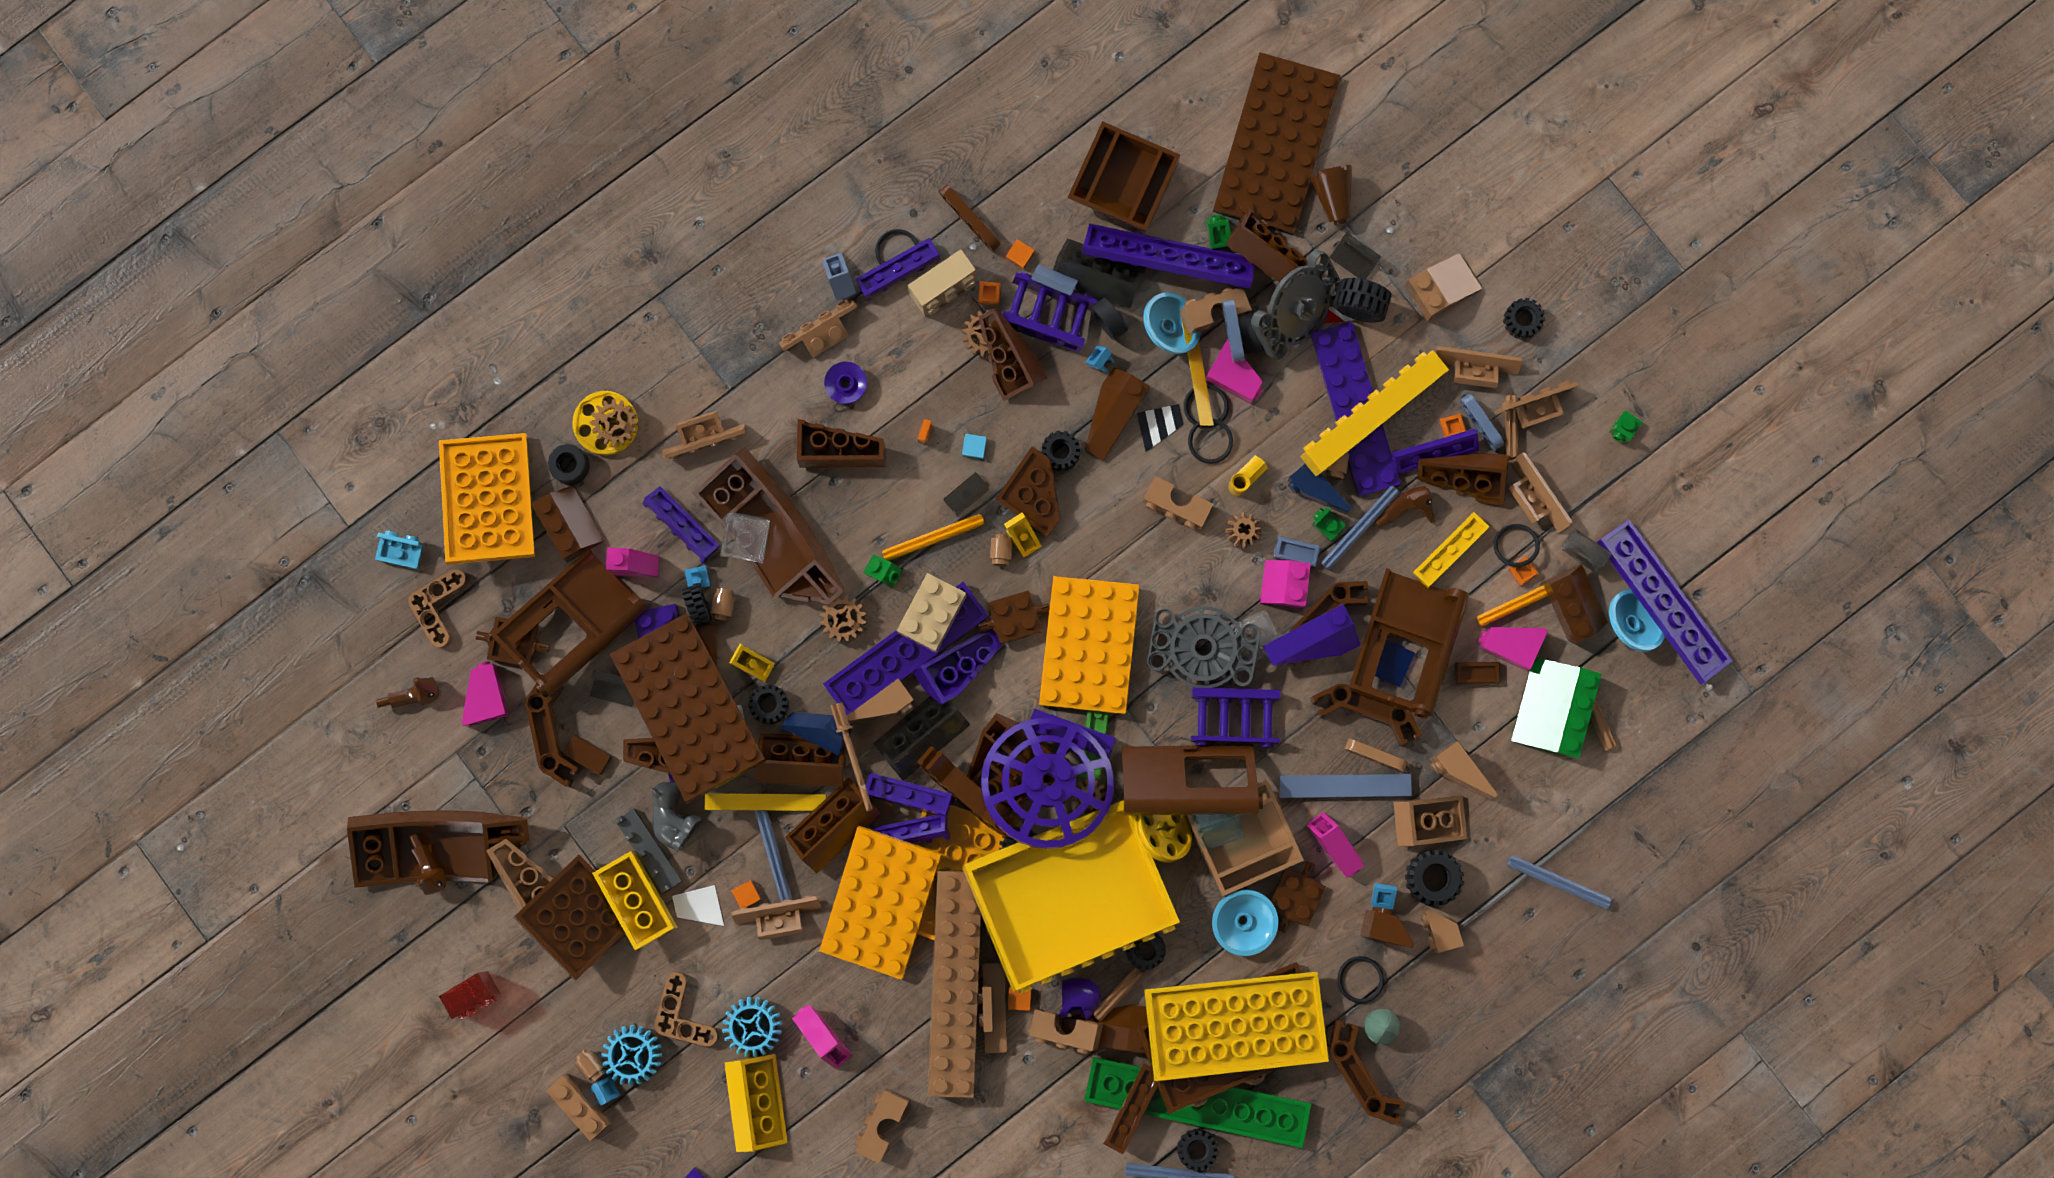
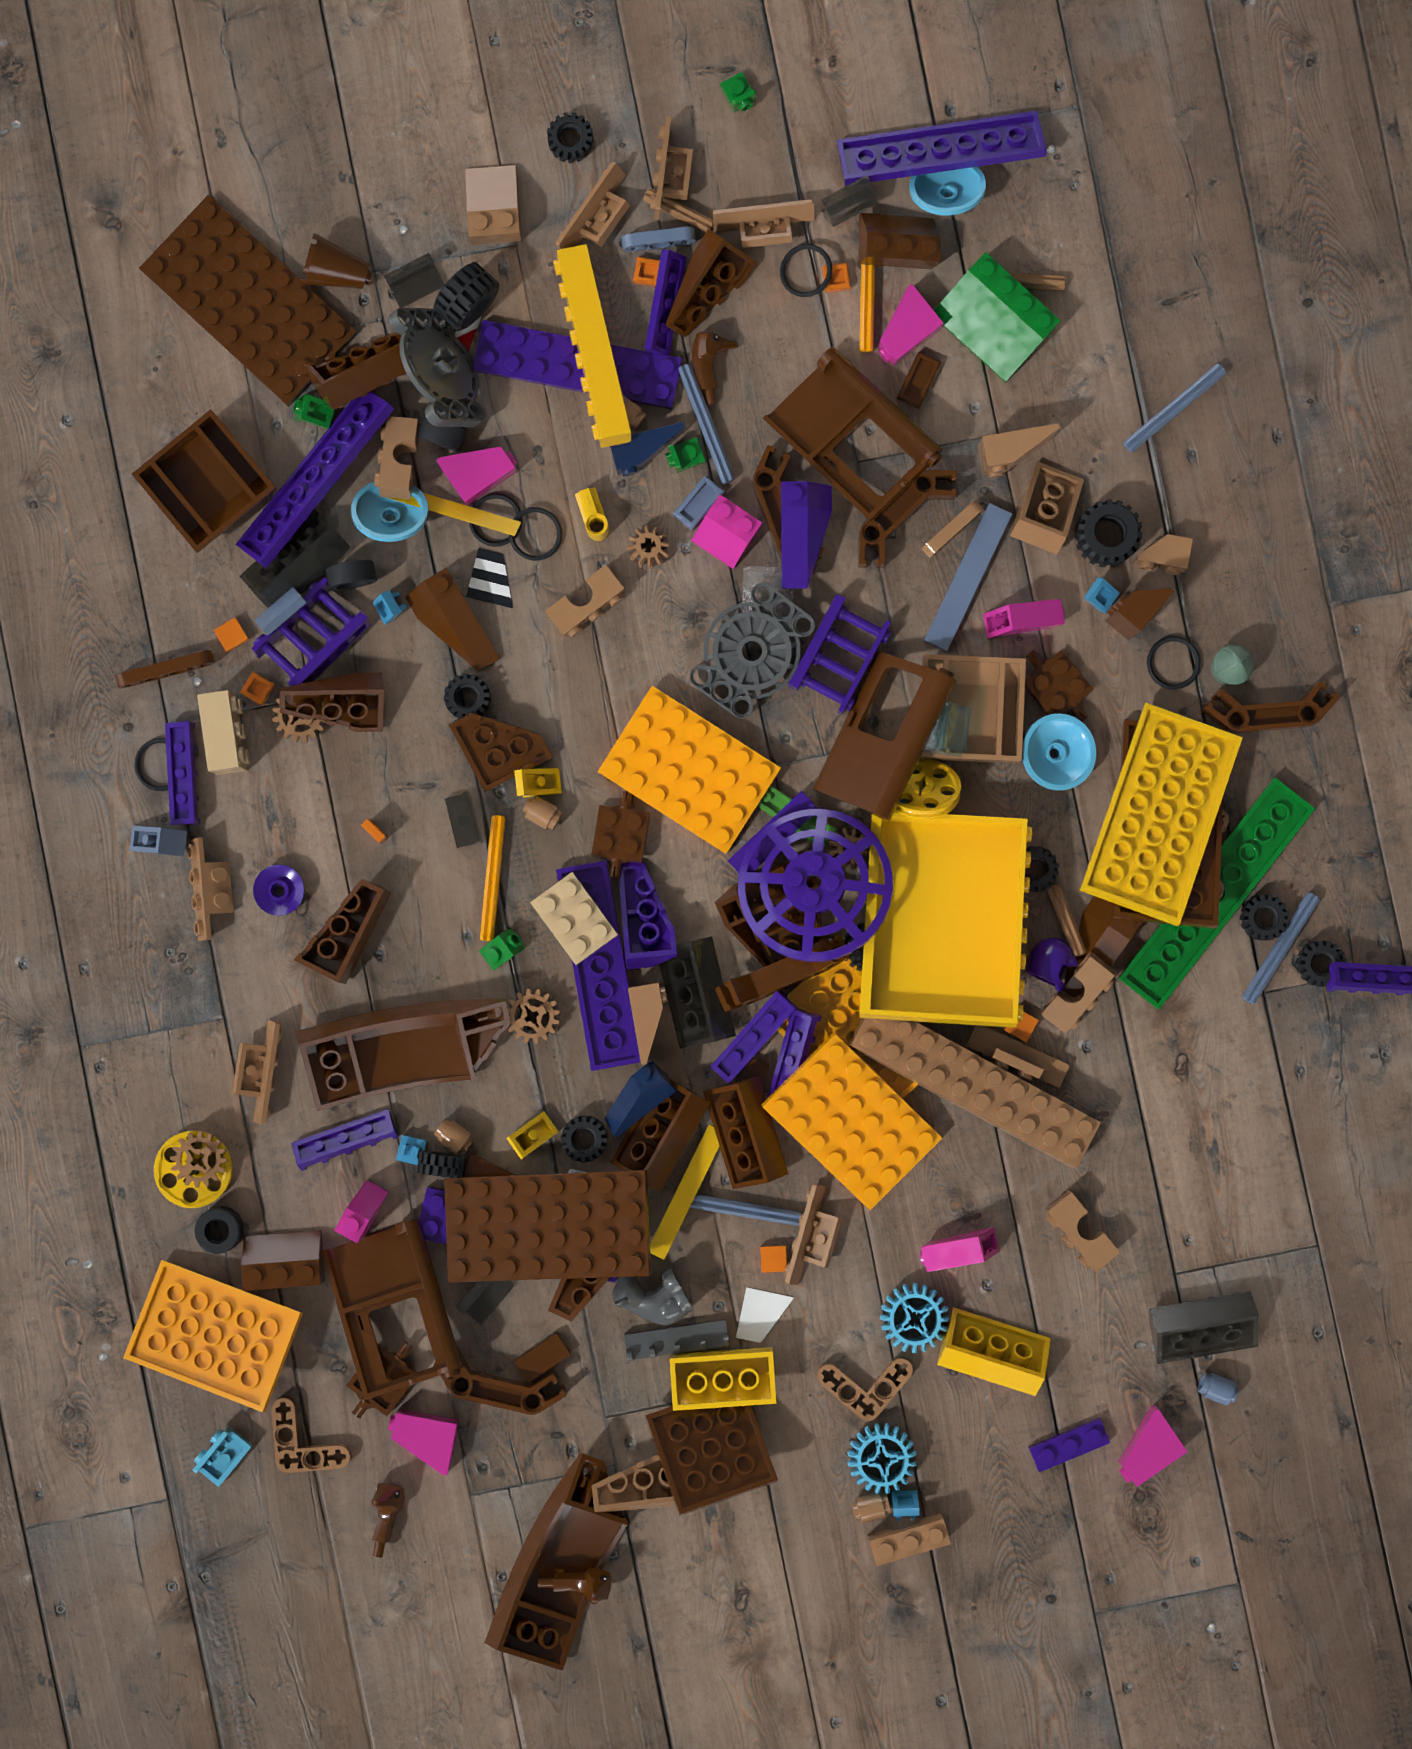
camera: 70 degrees left, 5 degrees up
(469, 995) = (737, 1602): clear red brick -> none
(745, 537) = (394, 1077): clear slope -> none
(843, 725) = (649, 1070): medium nougat piece -> none
(974, 446) = (416, 786): medium azure tile -> none
(1131, 1110) = (1192, 964): reddish brown plate -> none
(1233, 330) = (431, 449): sand blue beam -> none
(1394, 663) = (866, 461): clear blue piece -> none
(1451, 549) = (777, 341): yellow plate -> none

